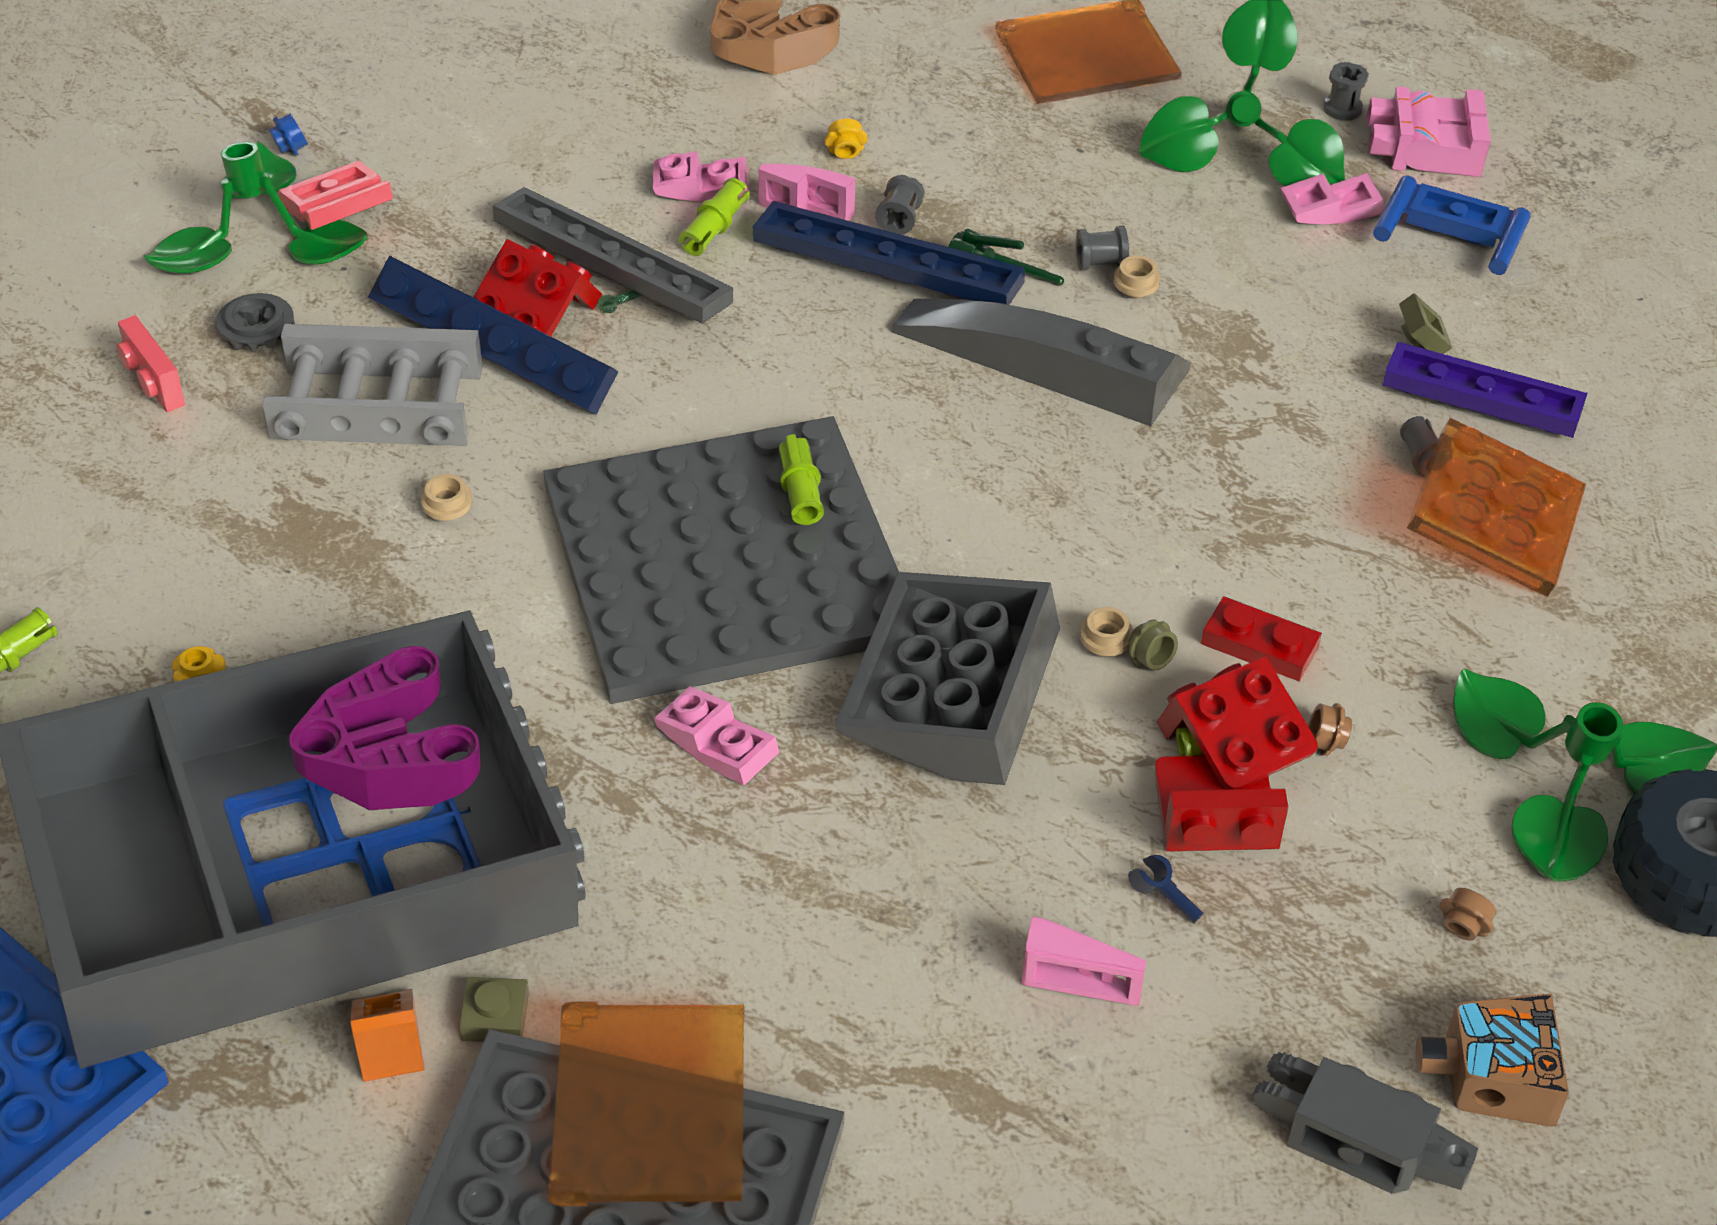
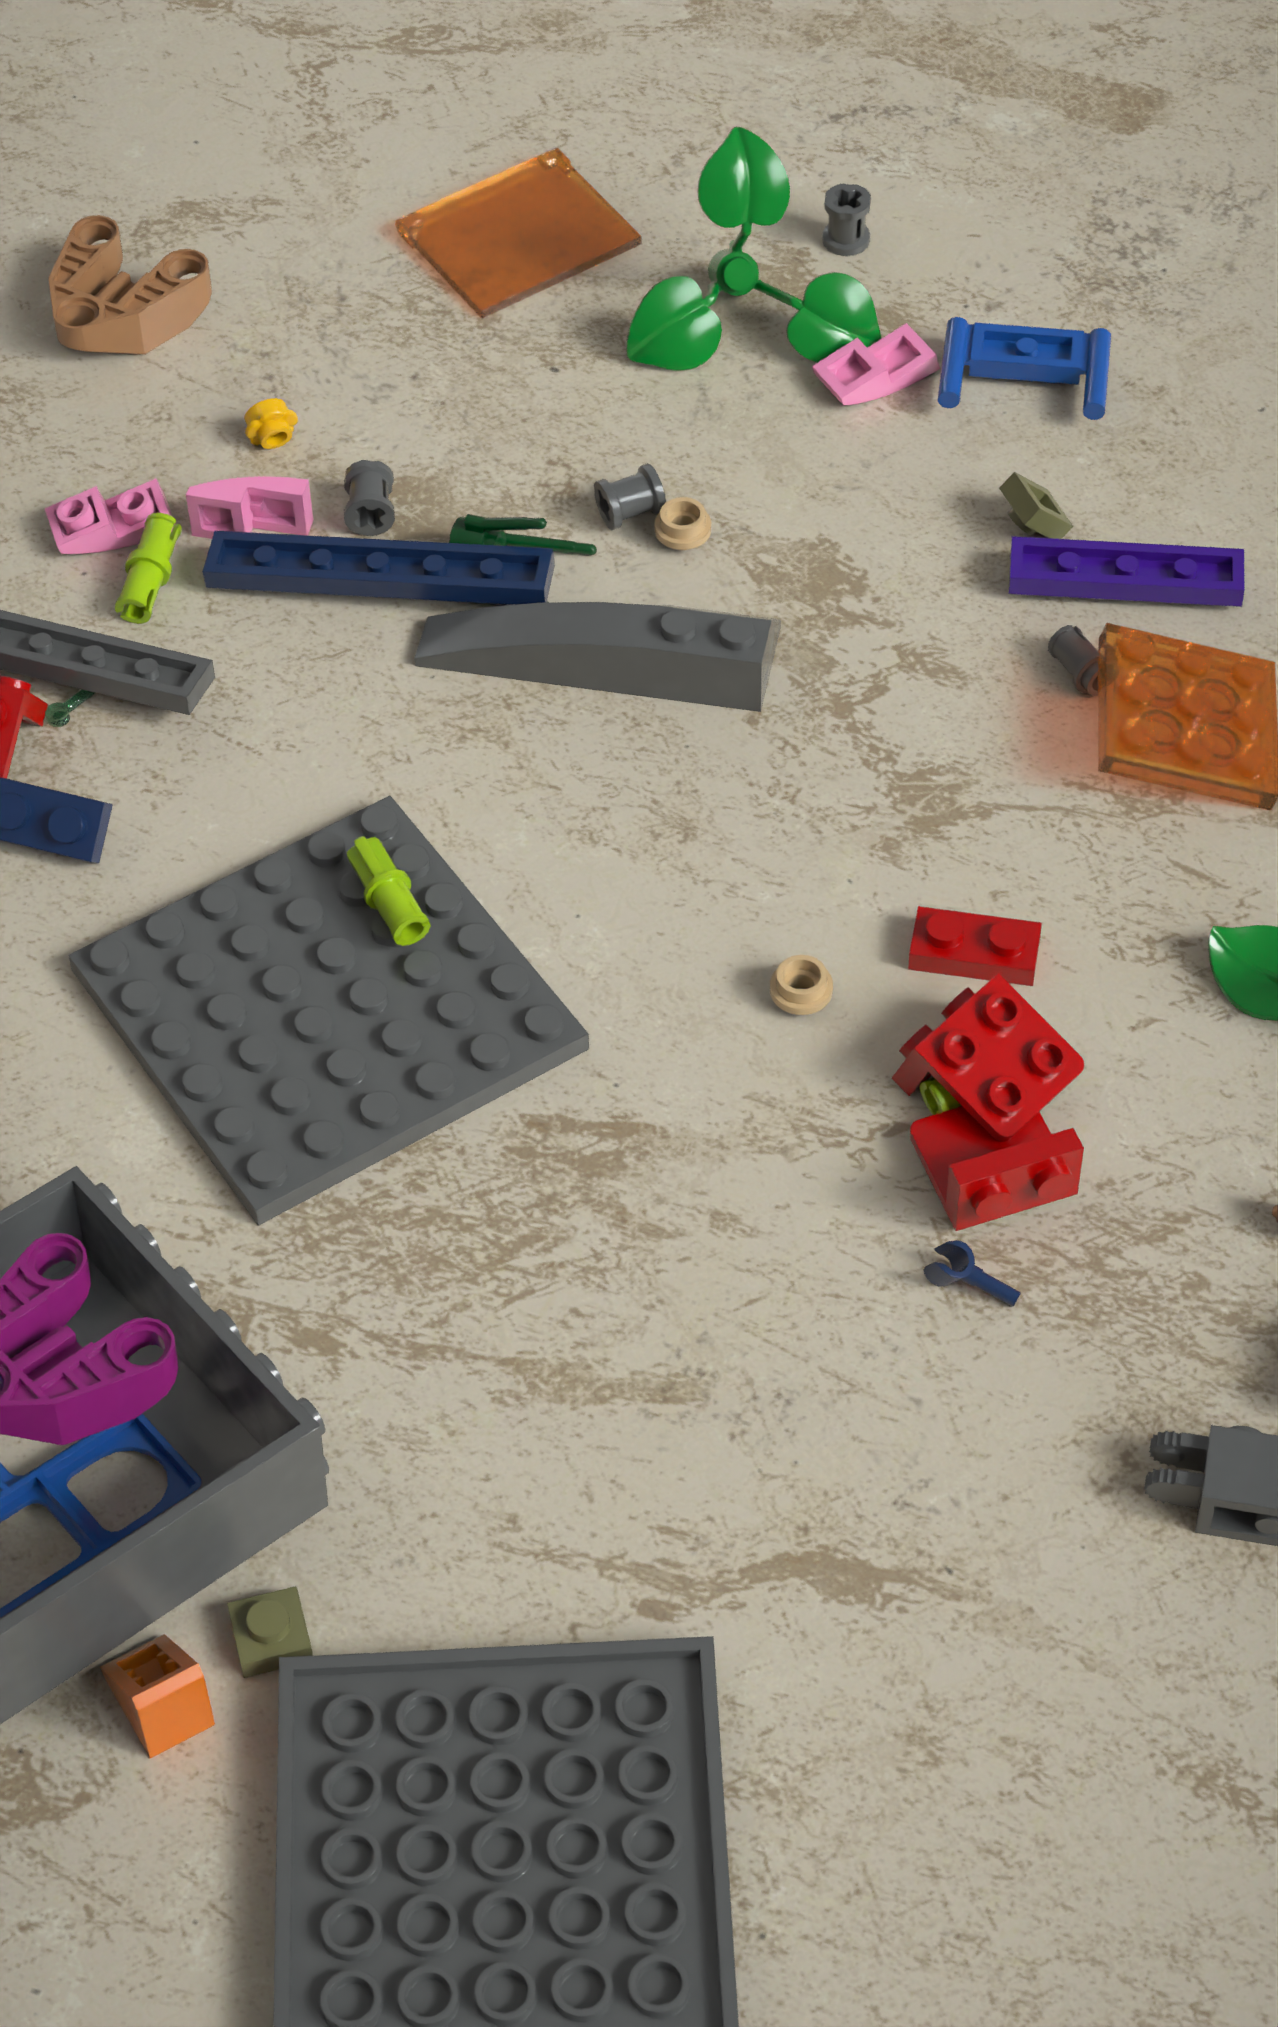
camera: 15 degrees left, 5 degrees up
(648, 1104) = (495, 1690): clear orange piece -> none
(710, 734) = (392, 1232): bright pink slope -> none
(953, 673) = (648, 1084): dark grey slope -> none
(1080, 965) = (909, 1392): bright pink slope -> none
(1152, 645) = (858, 987): olive plate -> none
(1330, 727) = (1088, 1034): medium nougat plate -> none
(1430, 131) = (962, 250): bright pink hips -> none

